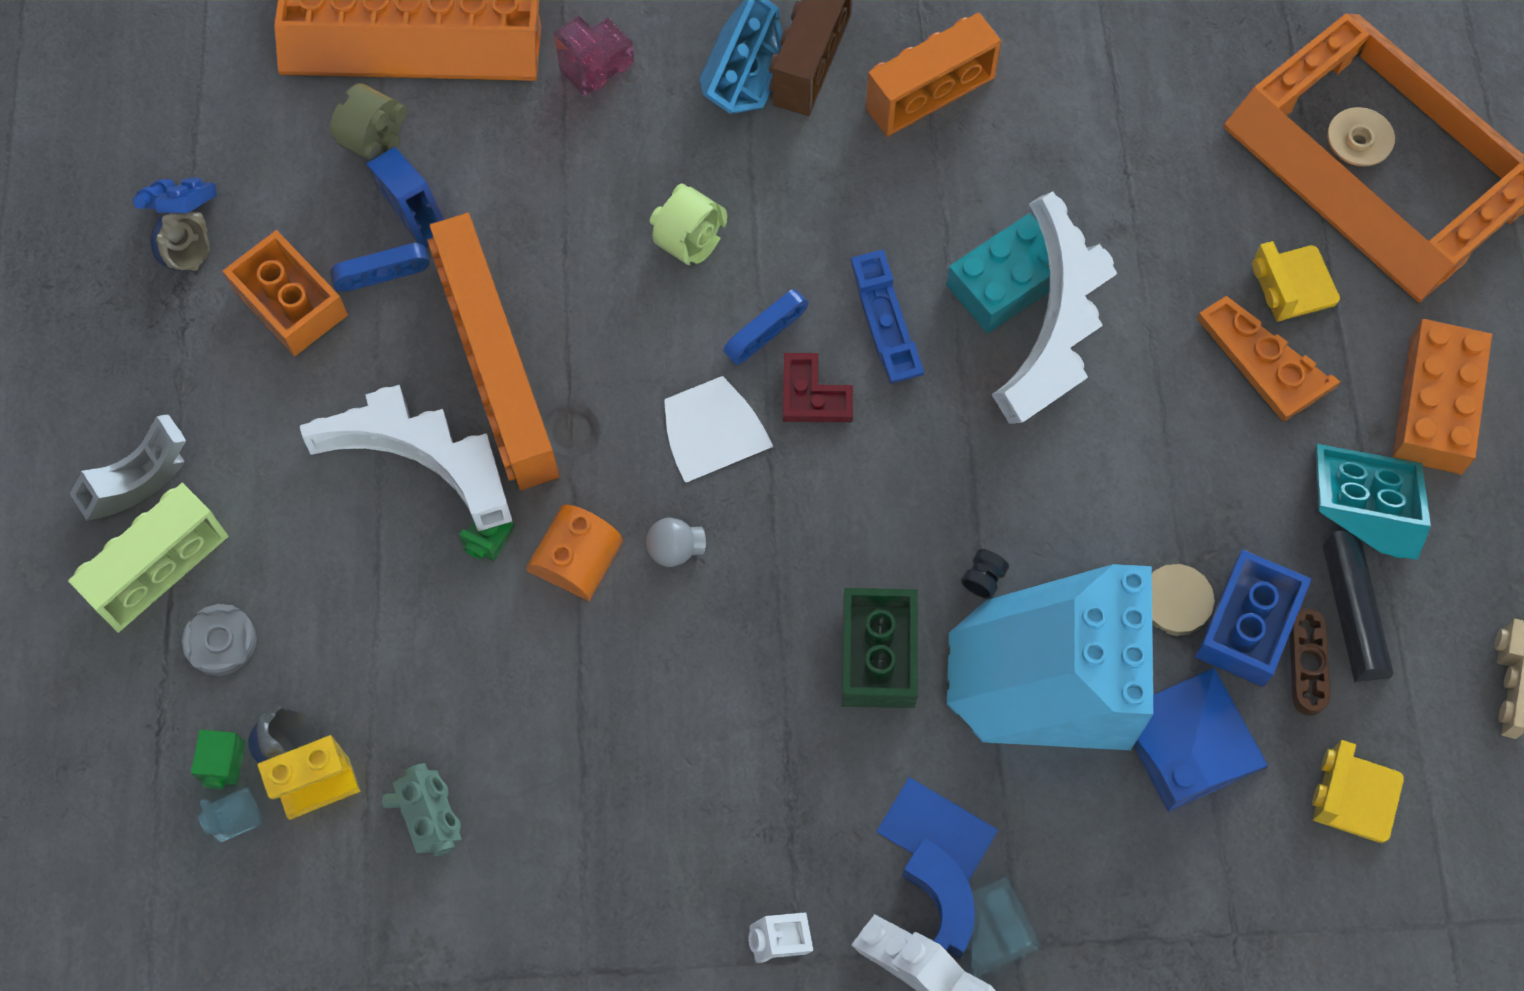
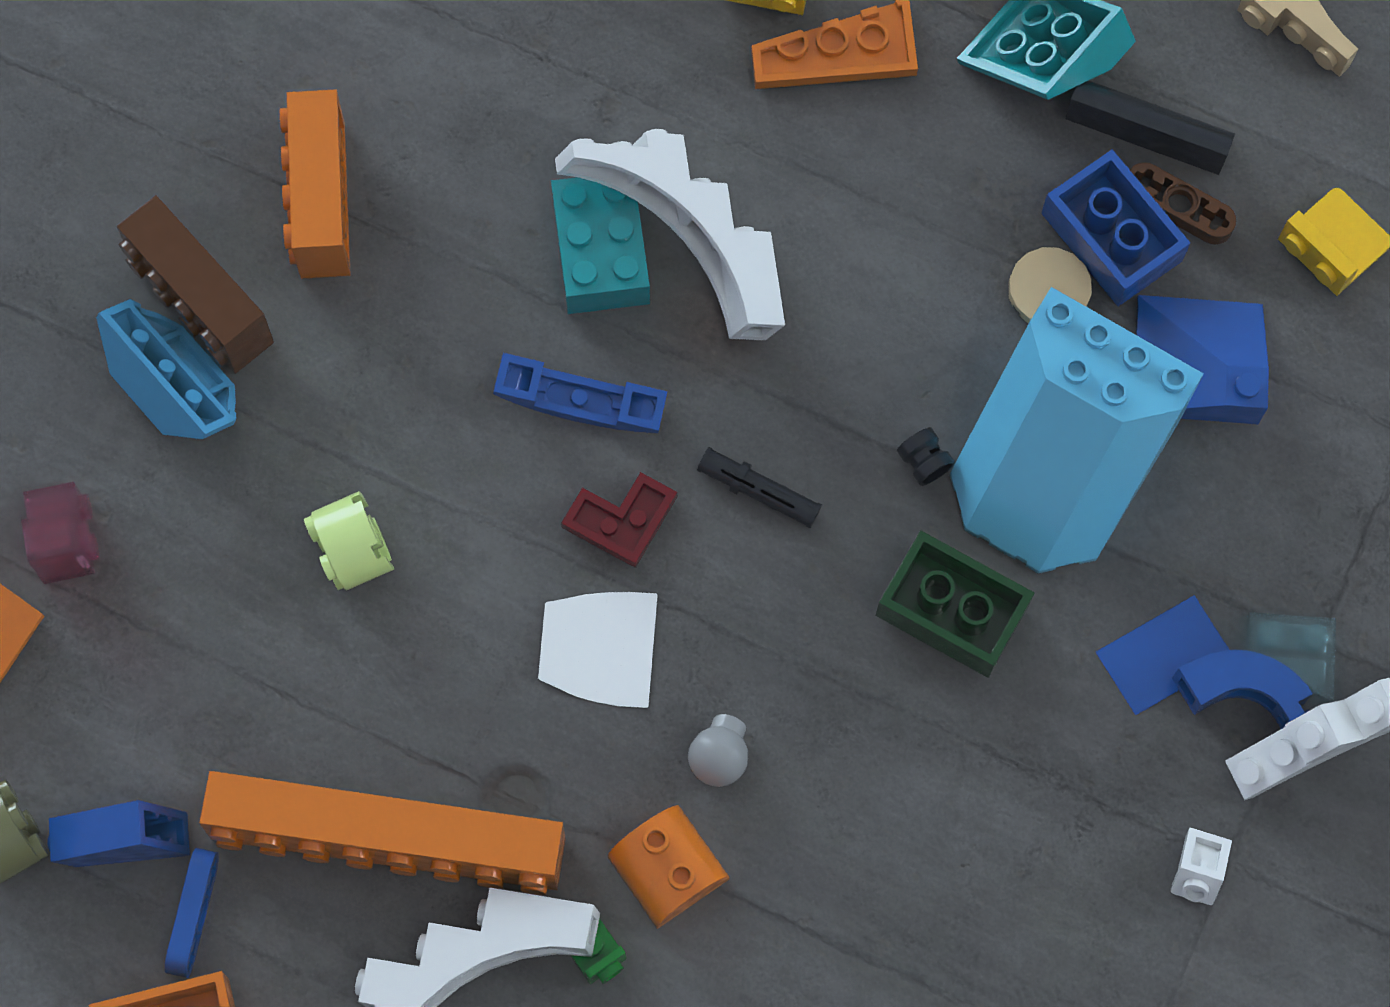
camera: 65 degrees left, 5 degrees up
(765, 327) = (516, 525): blue beam -> none
(891, 460) = (715, 464): none -> black pin

